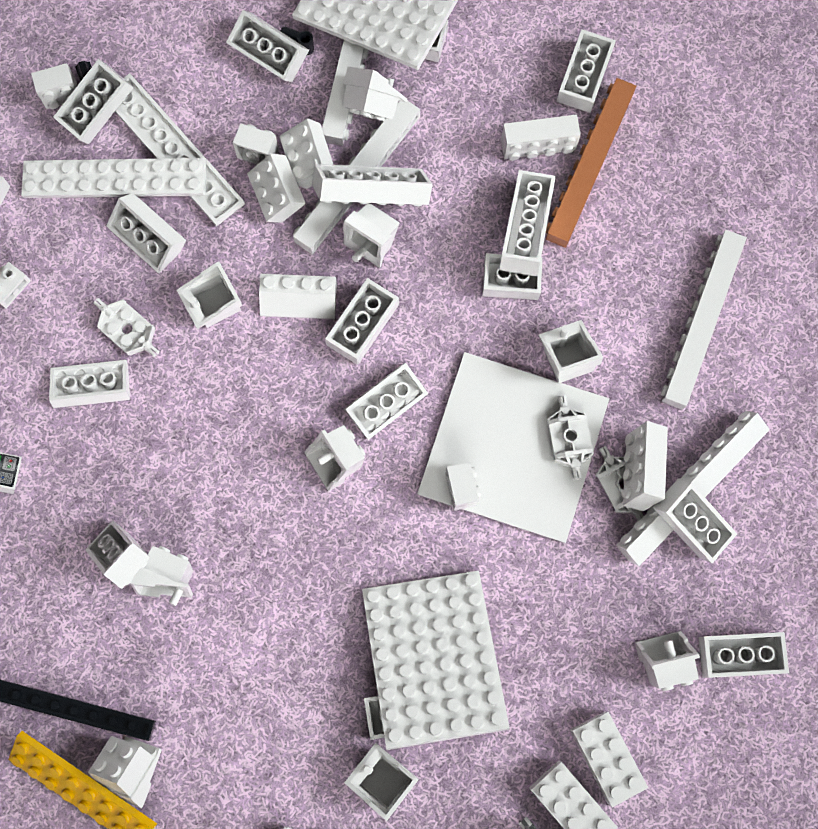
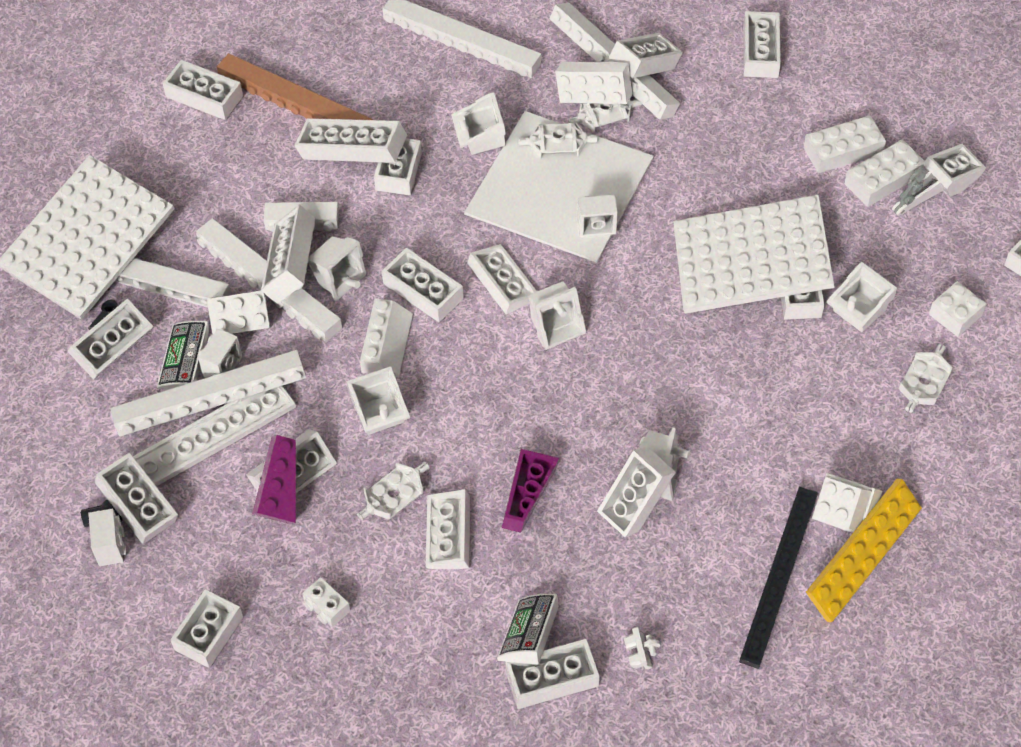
camera: 80 degrees left, 20 degrees down
(105, 221) = (278, 482): none -> magenta wedge
(114, 178) = (223, 496): white plate -> none
(142, 452) = (527, 487): none -> magenta wedge
(216, 145) = (207, 393): none -> white brick
(269, 115) = (181, 356): none -> slope
(276, 188) = (270, 339): white brick -> none
(370, 94) = (190, 248): white piece -> none
(440, 201) = (325, 213): none -> white brick
(540, 137) = (264, 128): white brick -> none
(668, 660) = (763, 91): white piece -> none

